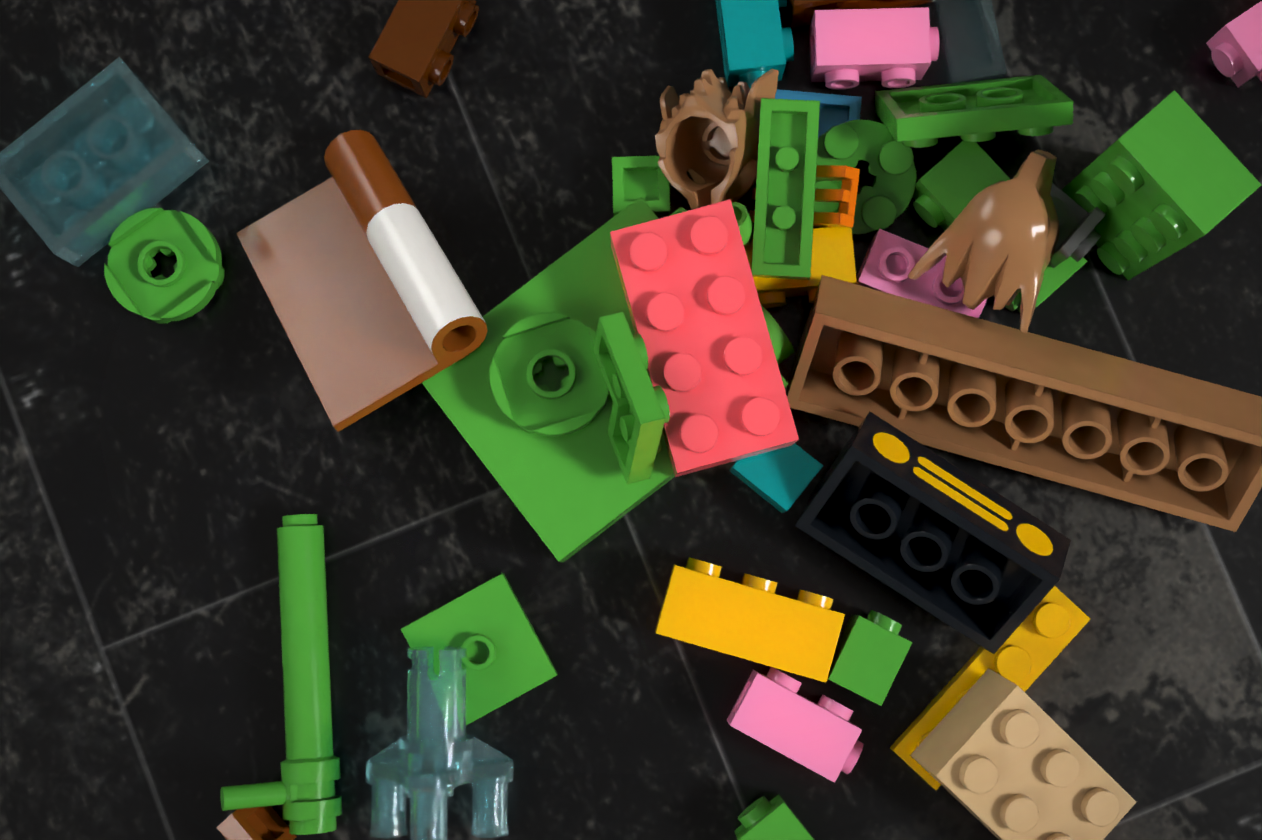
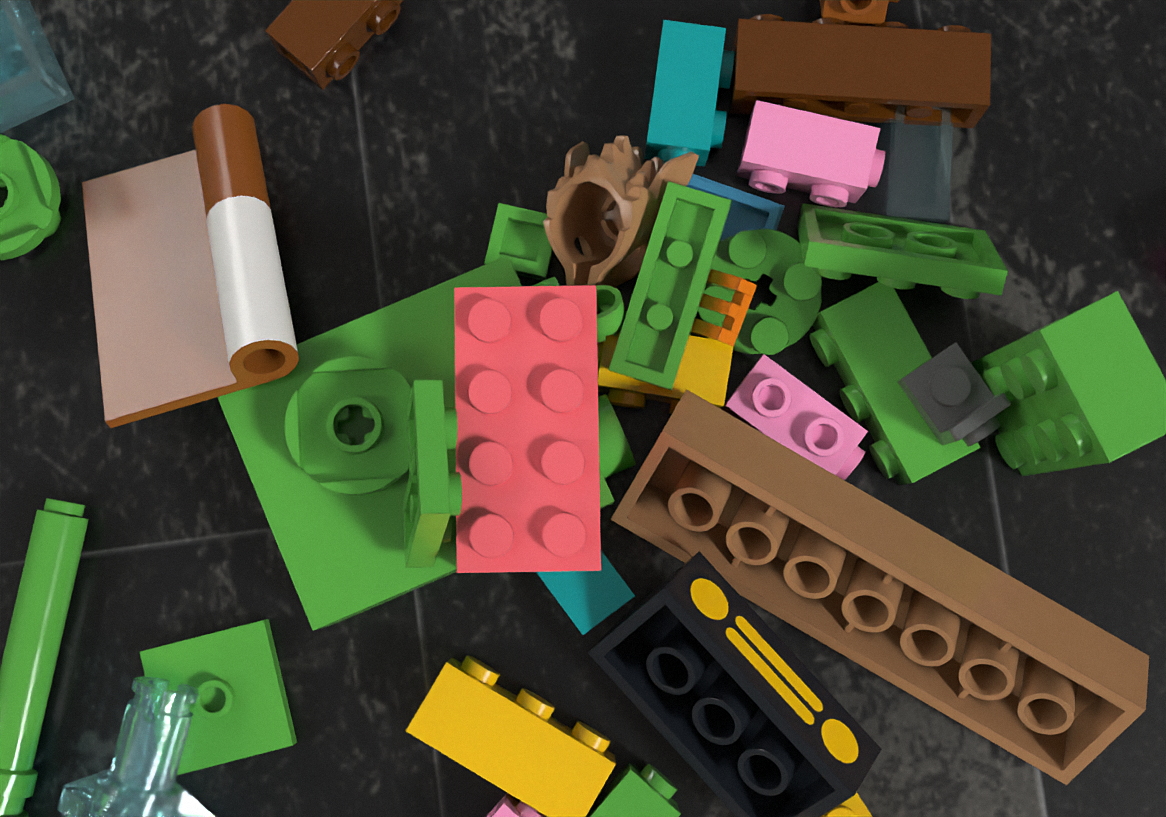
camera: 15 degrees right, 0 degrees up
(1002, 240) = (890, 403): medium nougat piece -> none

